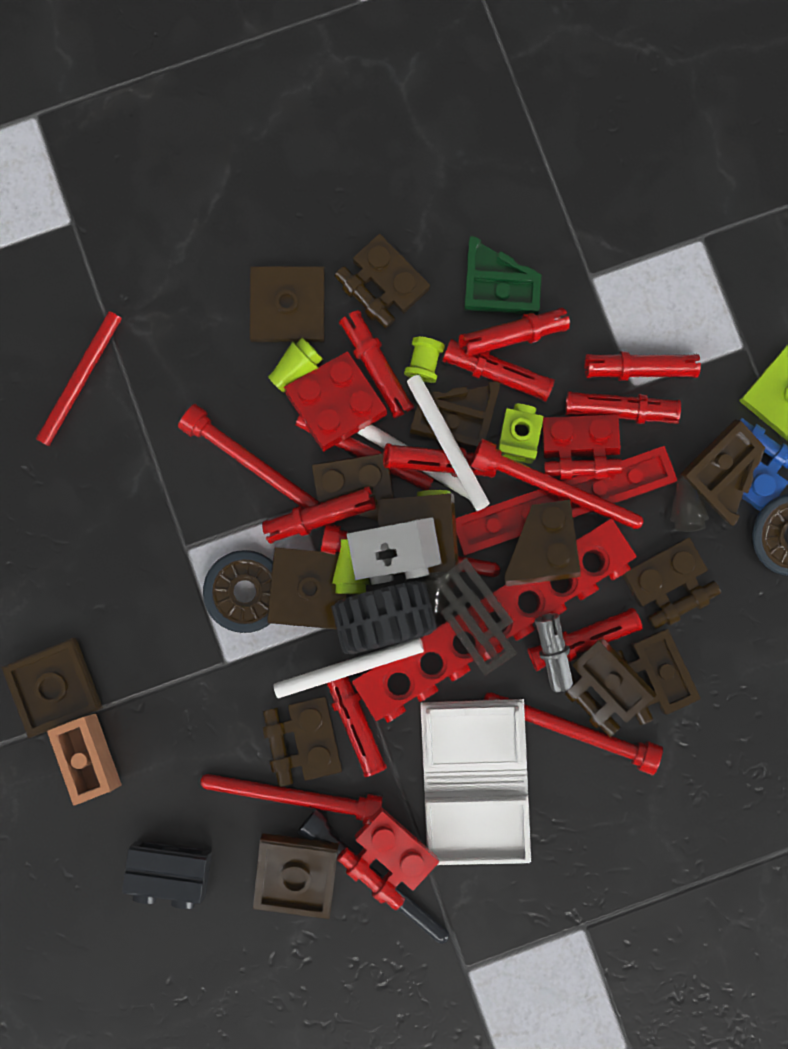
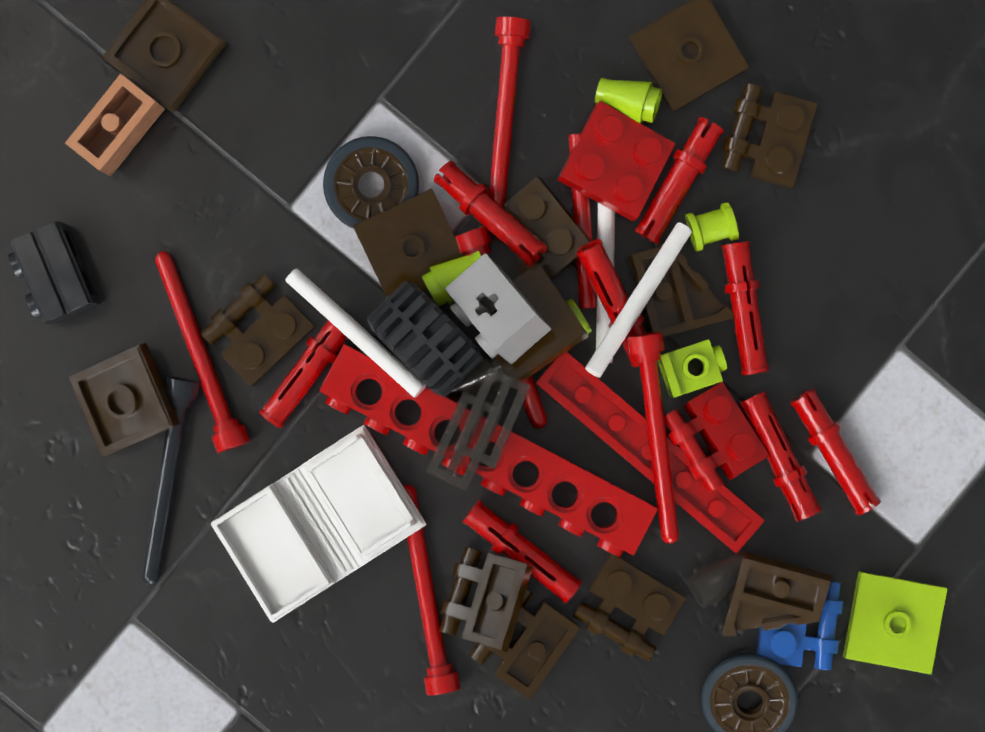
camera: 60 degrees right, 5 degrees up
(397, 850) = (206, 484): red plate -> none
(499, 283) = (837, 256): dark green wing -> none
(528, 328) = (806, 314): red pin -> none
(545, 546) = (590, 458): dark brown wing -> none
(554, 652) = (490, 527): dark grey axle -> none

